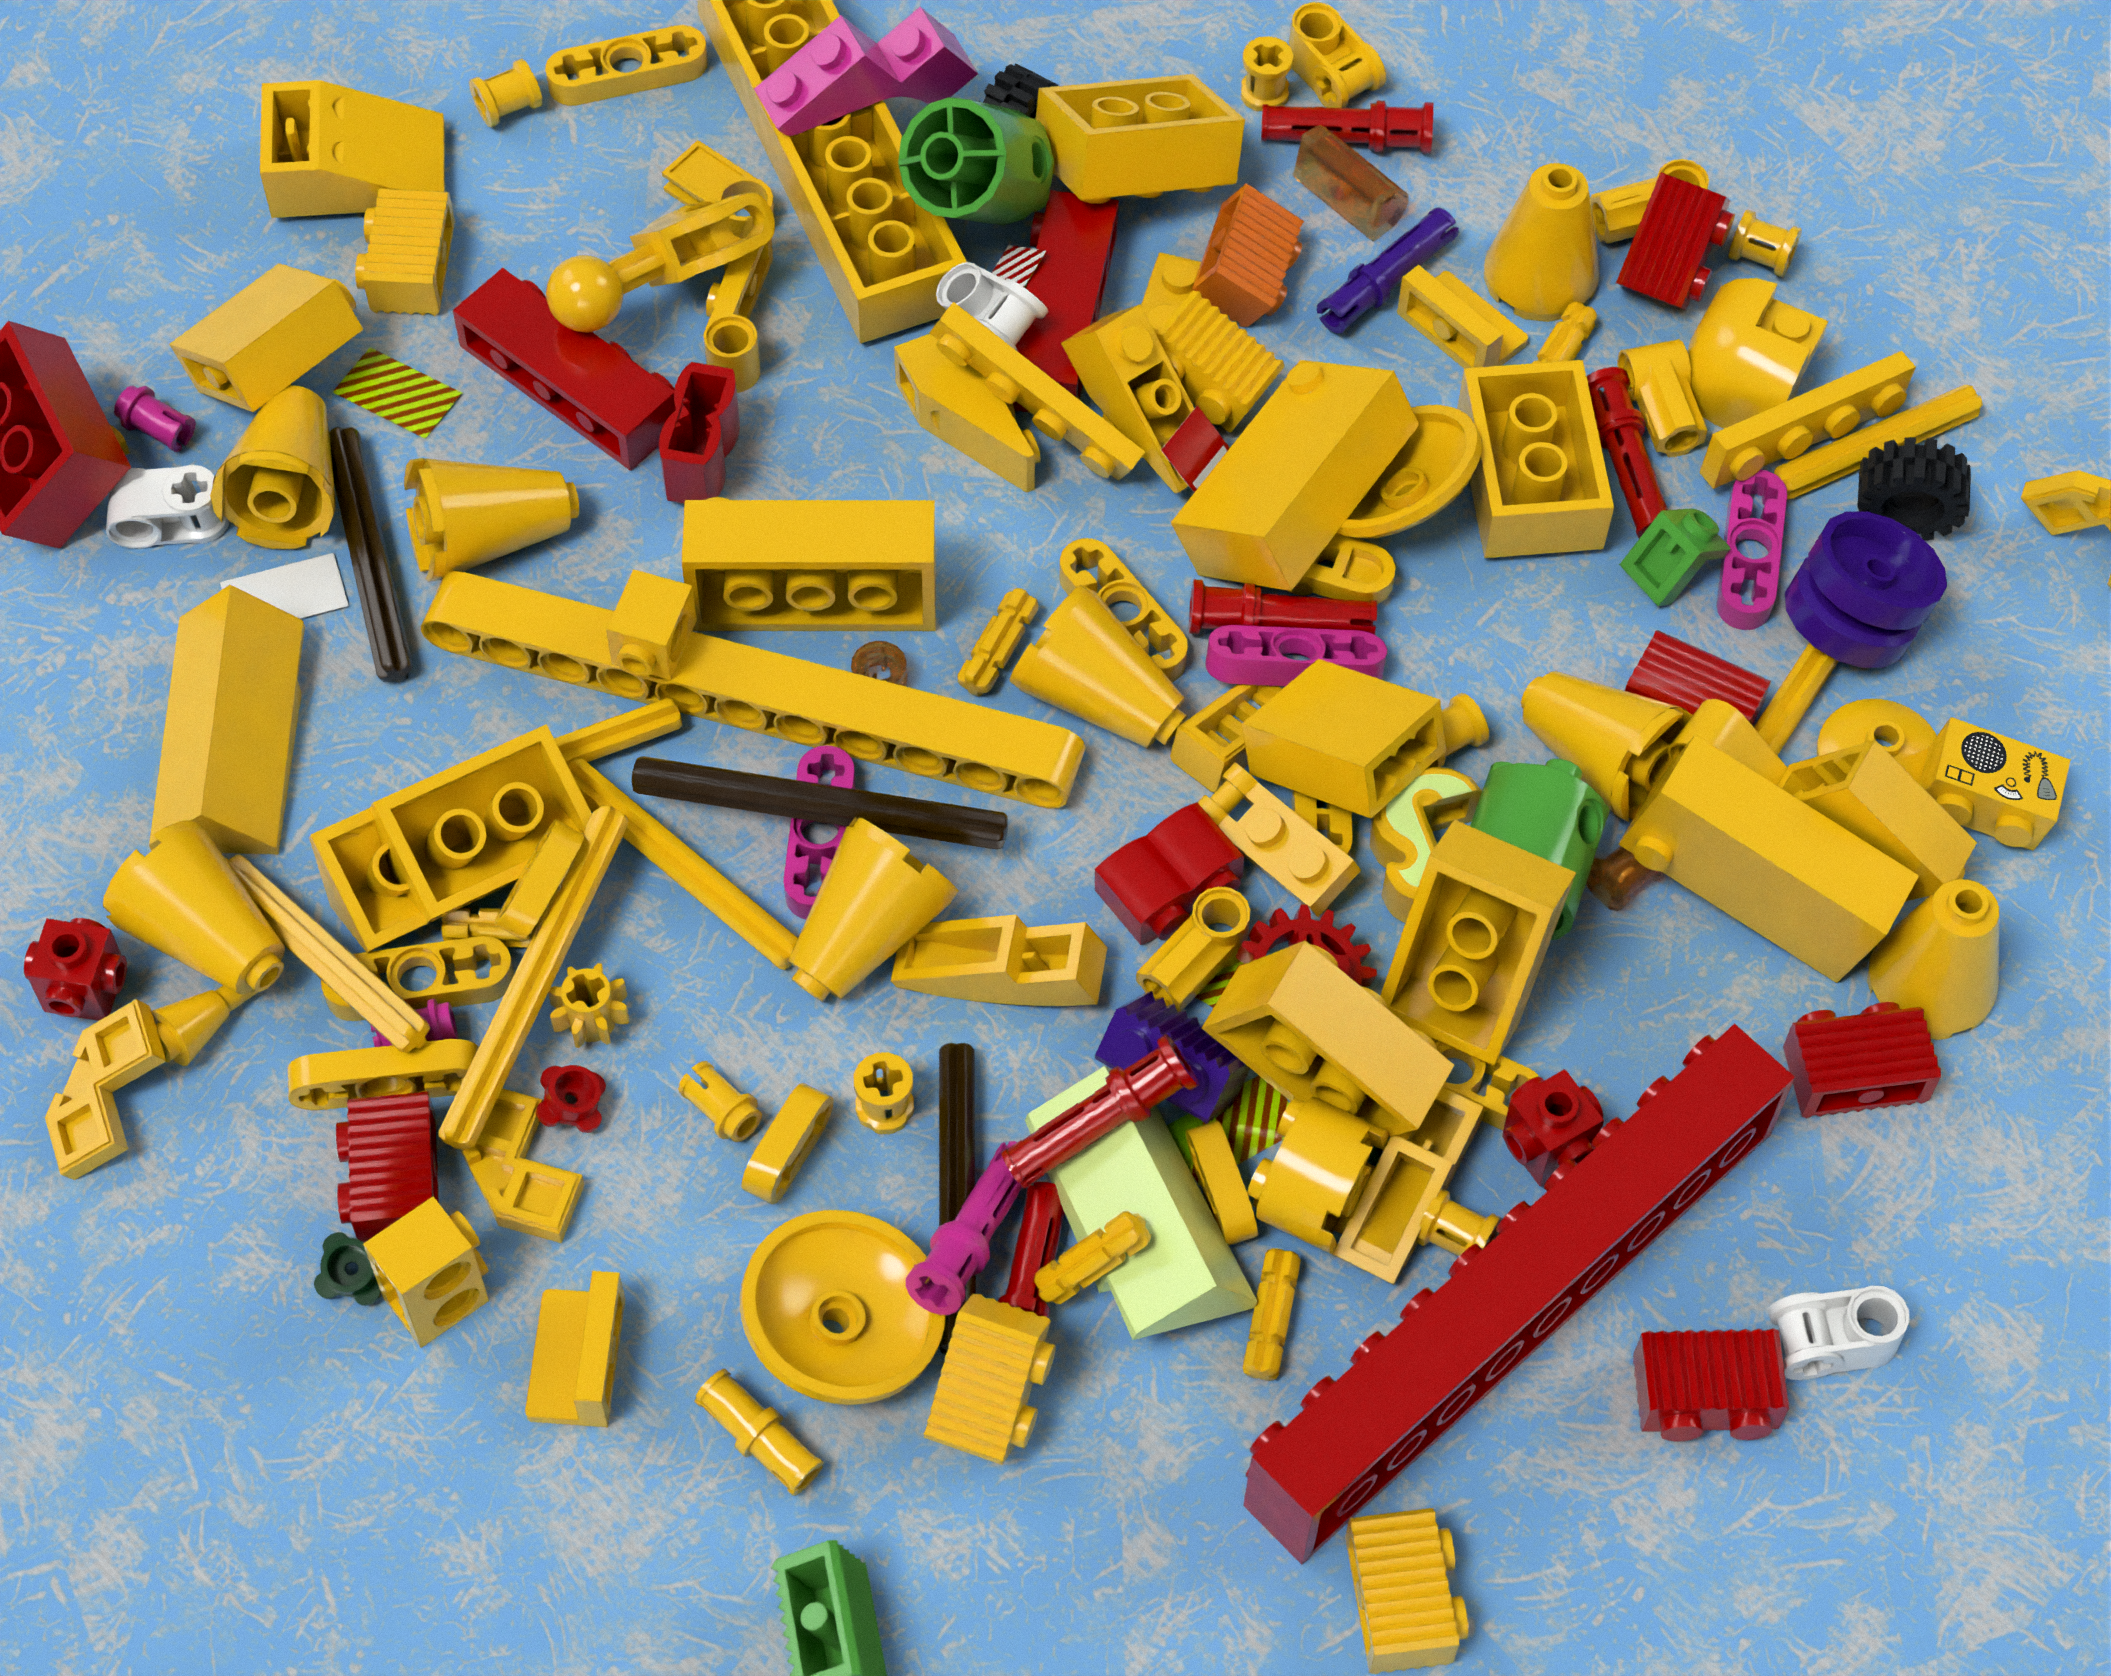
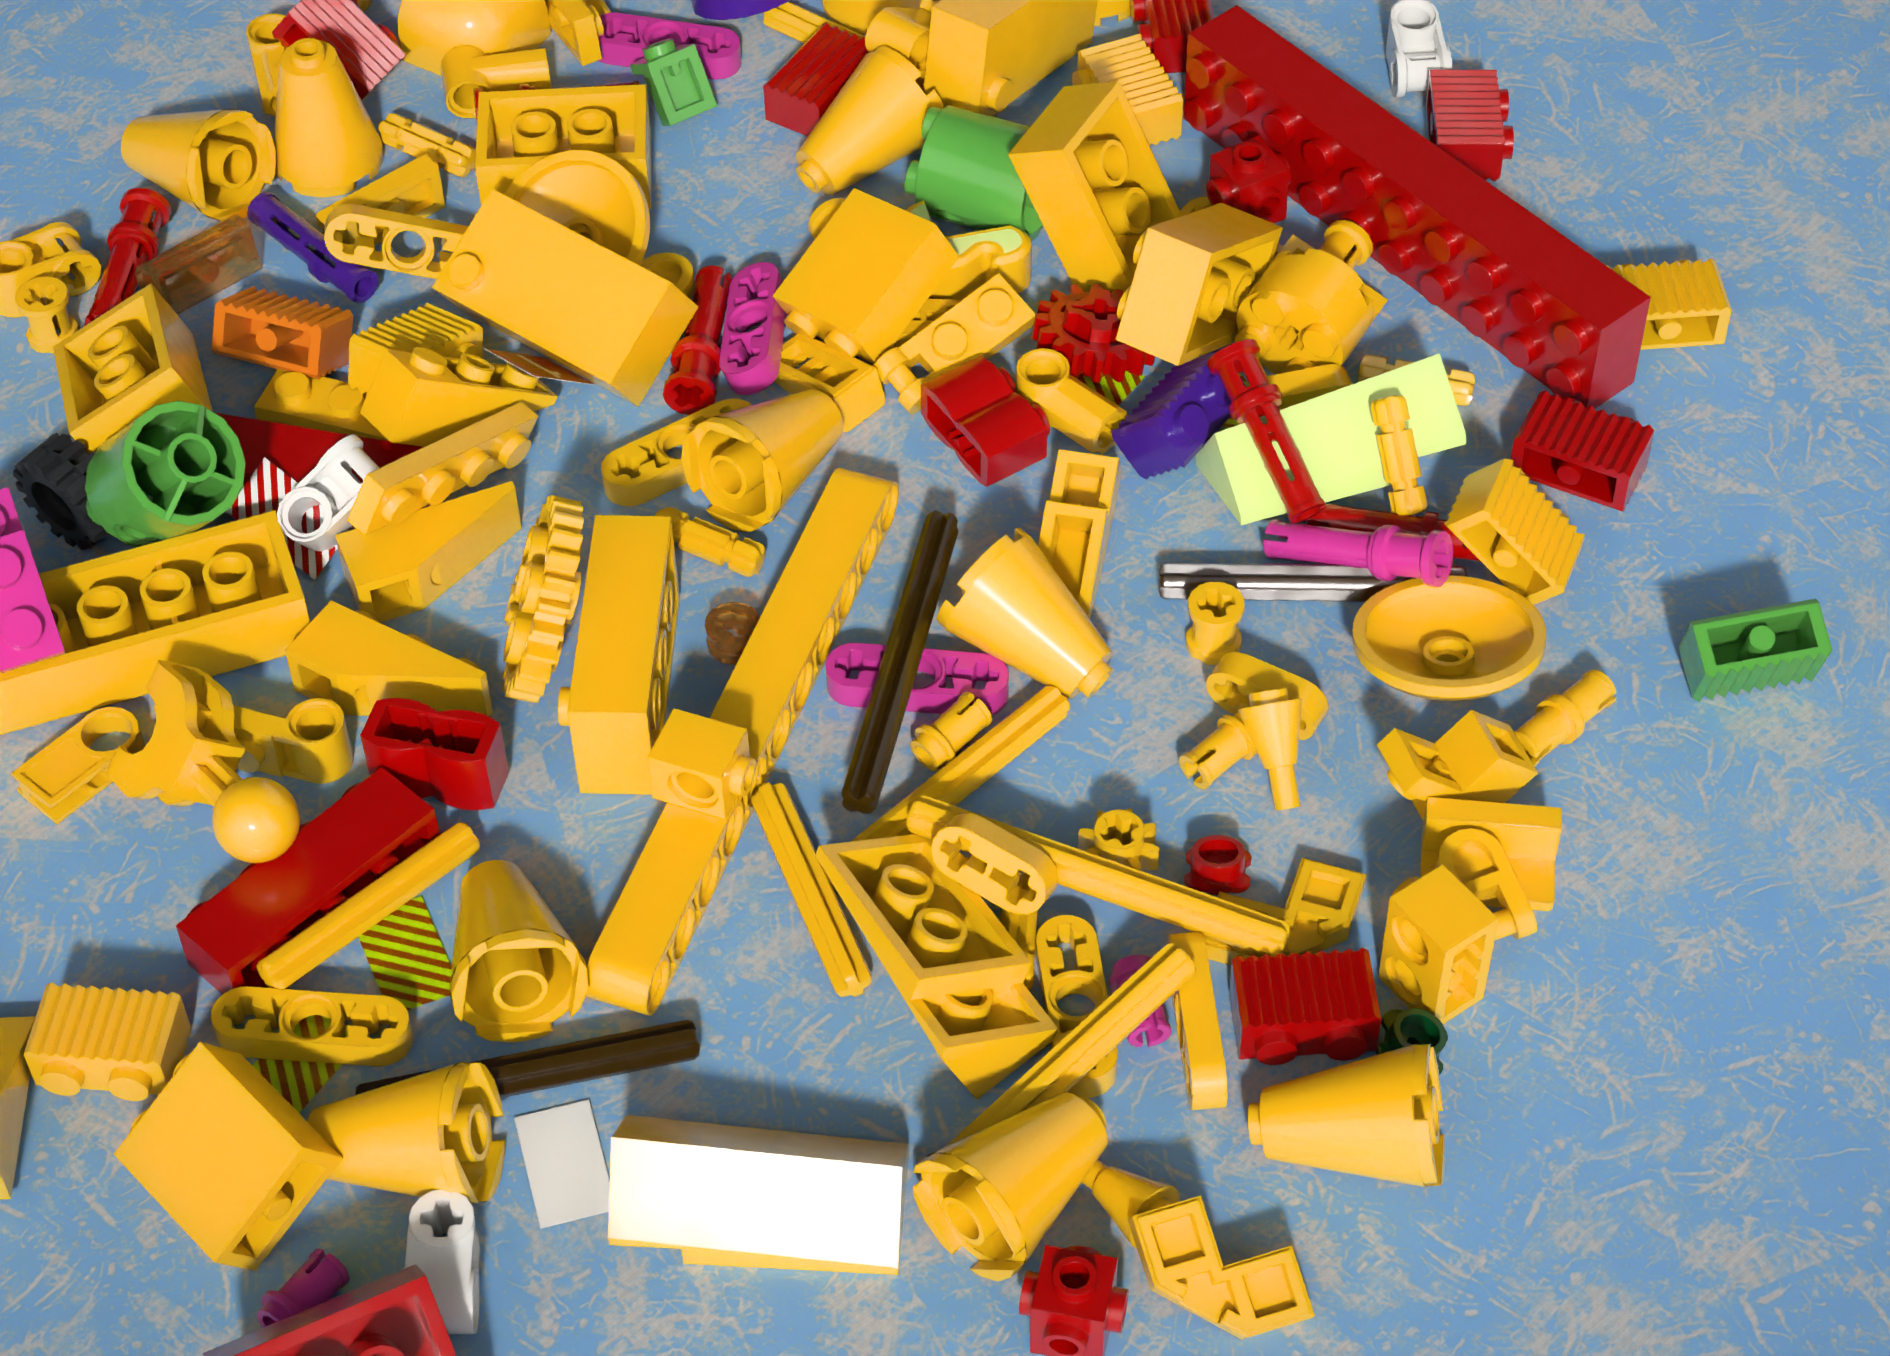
camera: 85 degrees left, 10 degrees down
(242, 1213) = (1359, 1118): none -> yellow cone
(413, 370) = (331, 1046): none -> yellow beam
(526, 445) = (408, 956): none -> clear neon green sticker
(545, 414) = (368, 907): none -> yellow axle
(545, 1324) = (1486, 870): none -> yellow plate
(668, 1305) = (1469, 762): none -> yellow brick
(720, 1132) = (1274, 731): none -> yellow cone
(732, 850) = (953, 729): none -> yellow pin
(823, 374) = (359, 661): none -> yellow slope
(849, 472) = (542, 599): none -> yellow gear
(1153, 1479) = (1582, 450): none -> red brick
(1374, 315) = (363, 251): none -> yellow beam
(1482, 156) = (203, 158): none -> yellow cone
(1729, 989) = (1145, 84): none -> yellow brick

